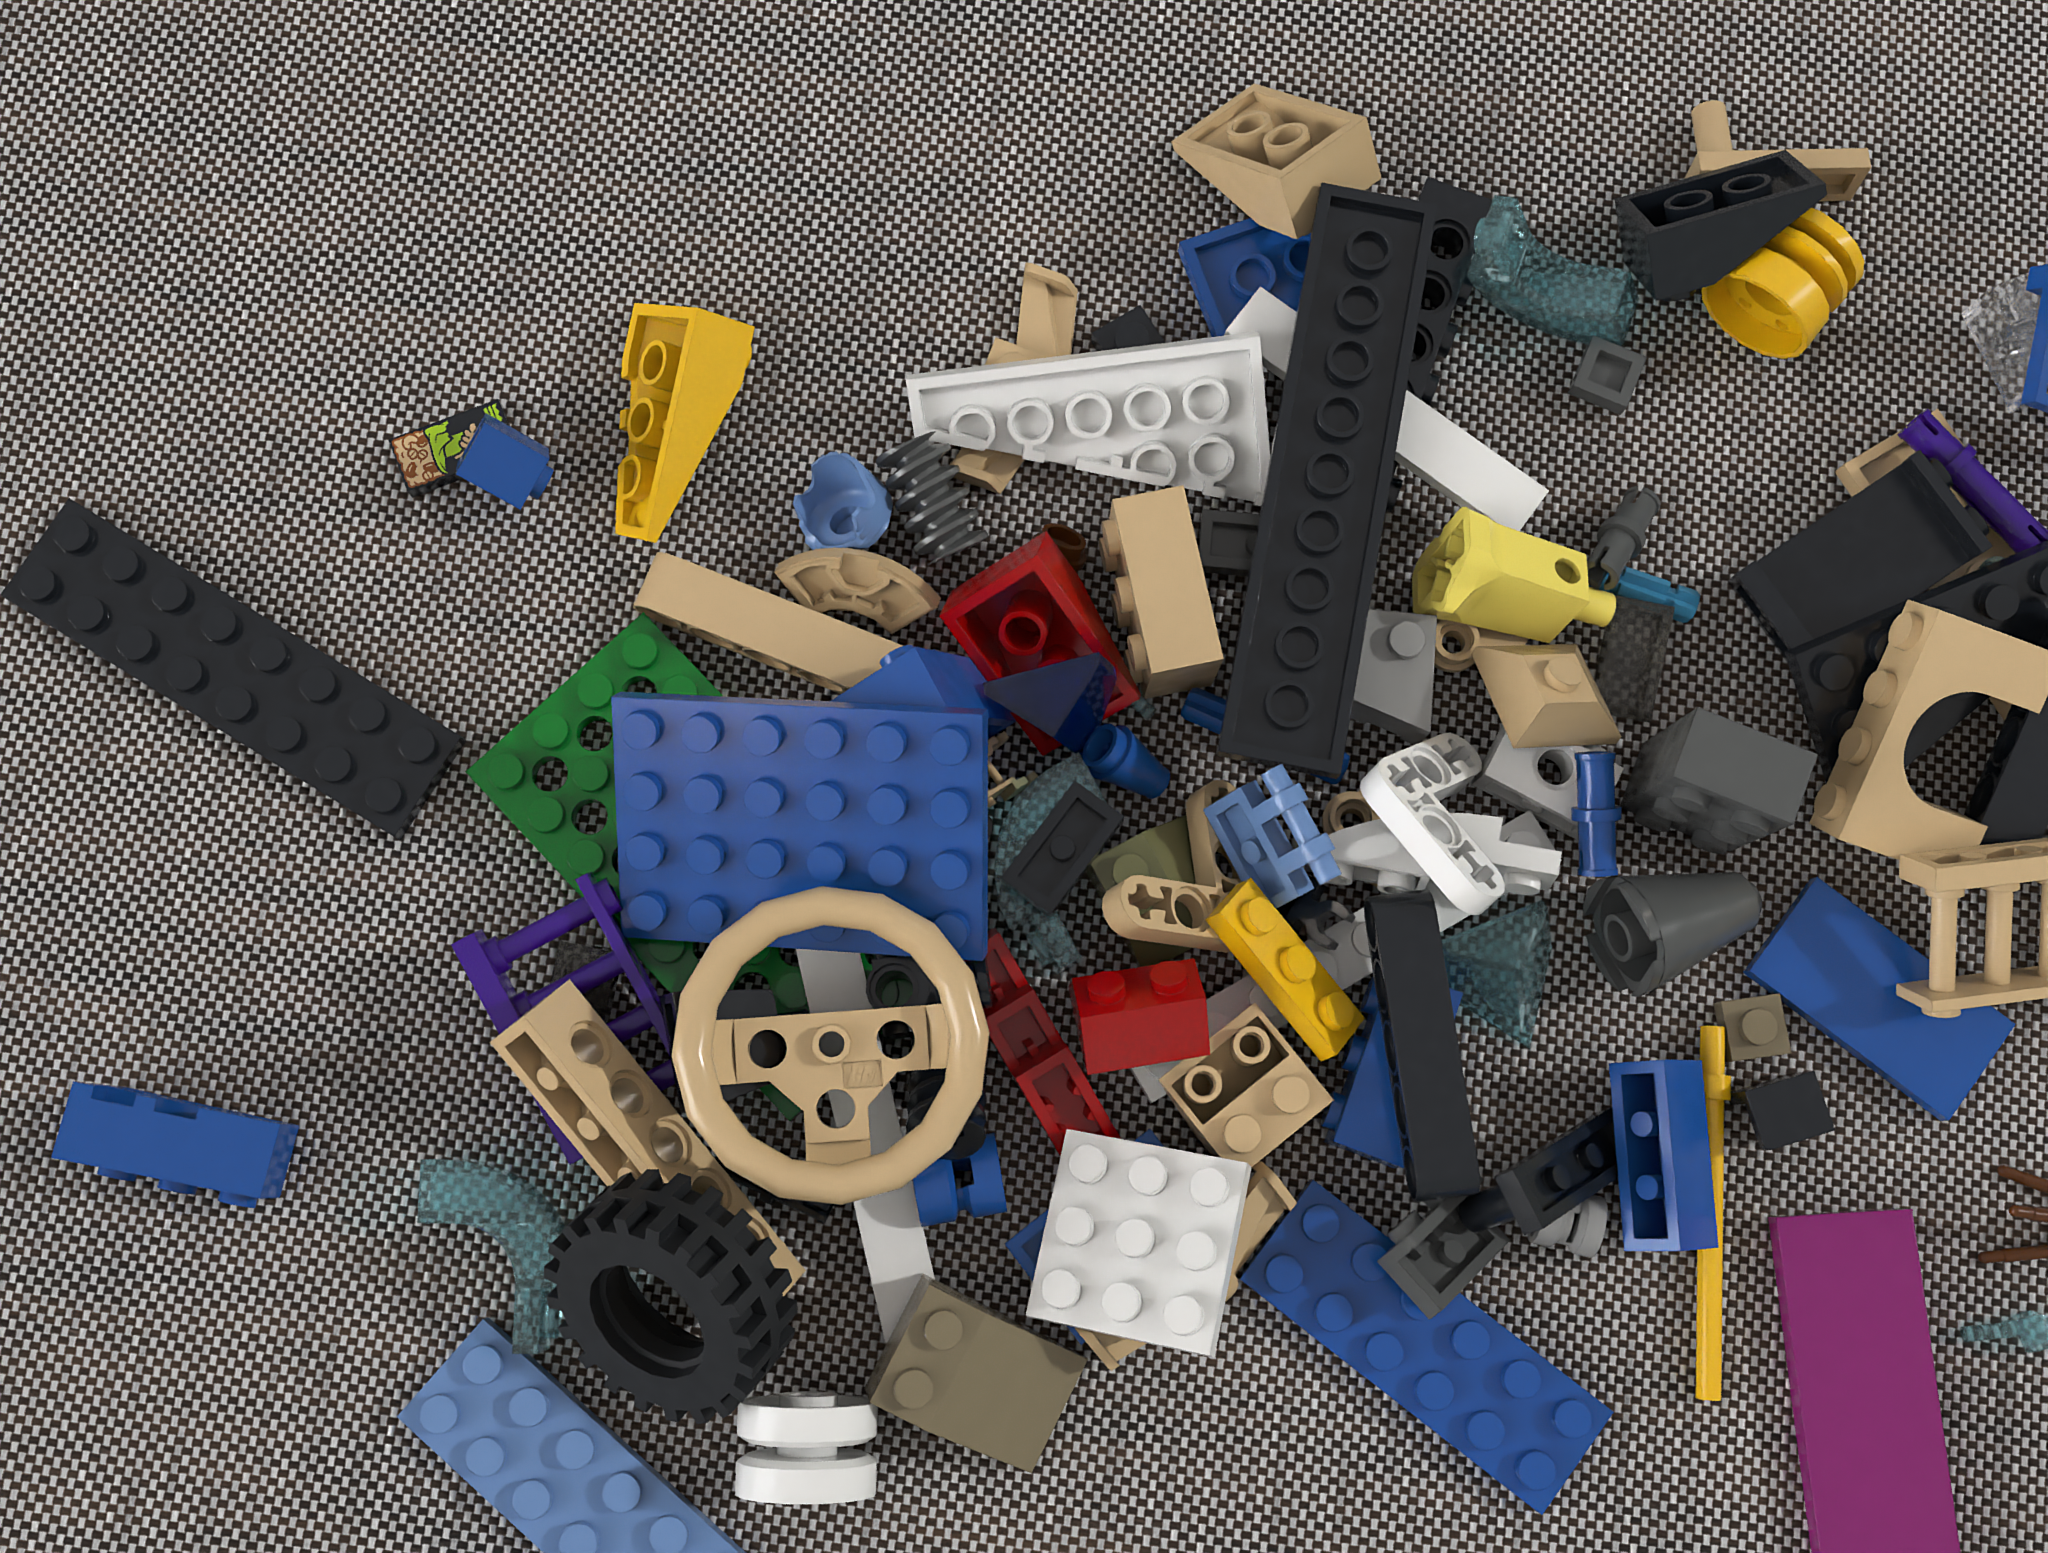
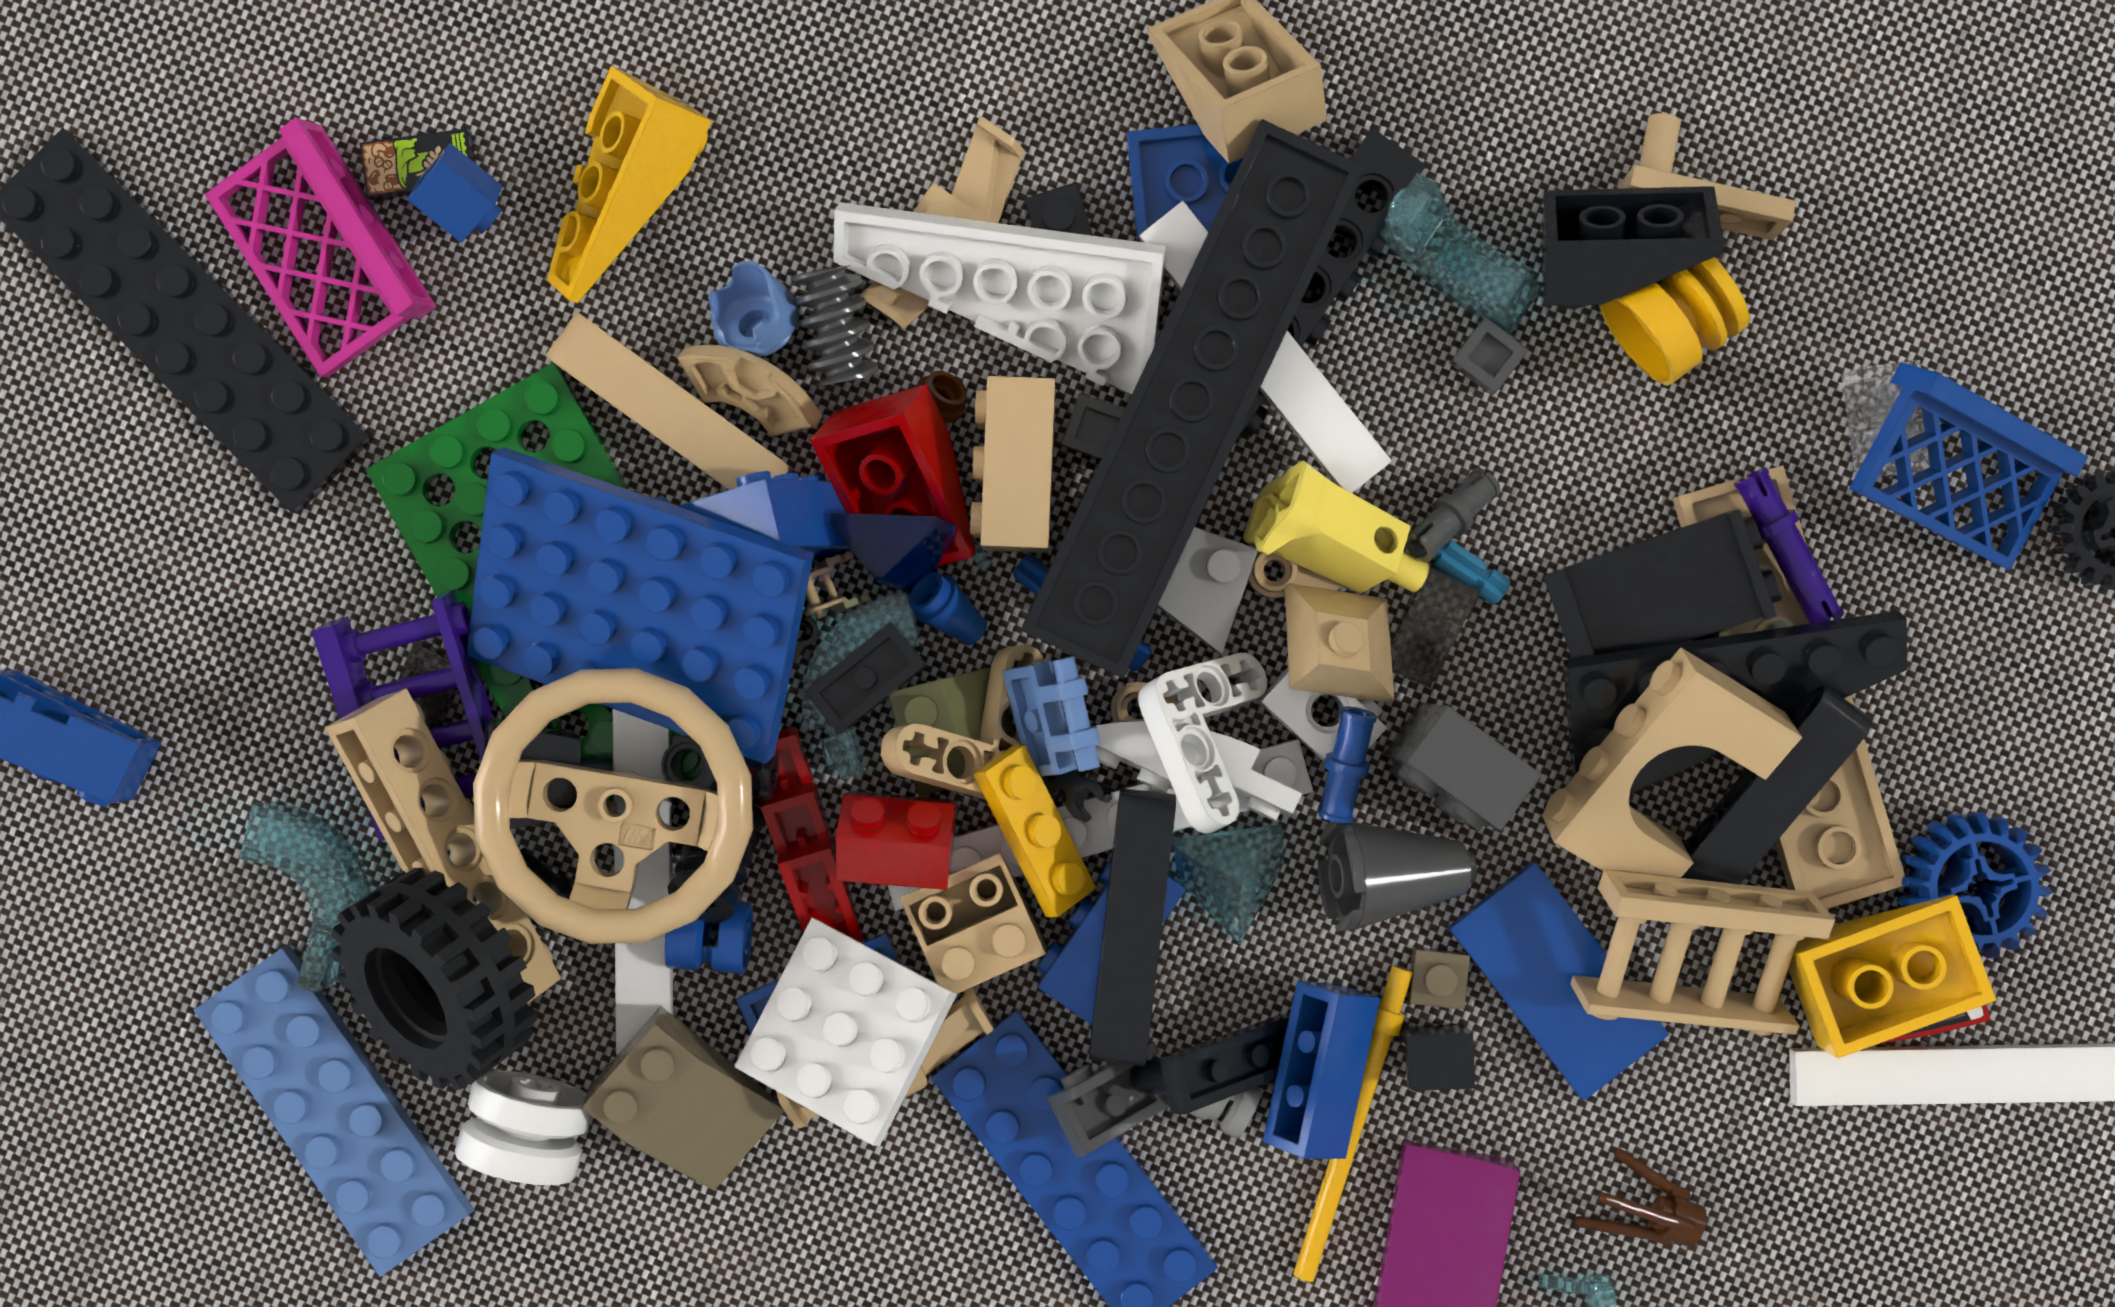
camera: 20 degrees right, 10 degrees up
(402, 520) = (347, 213): none -> dark pink fence

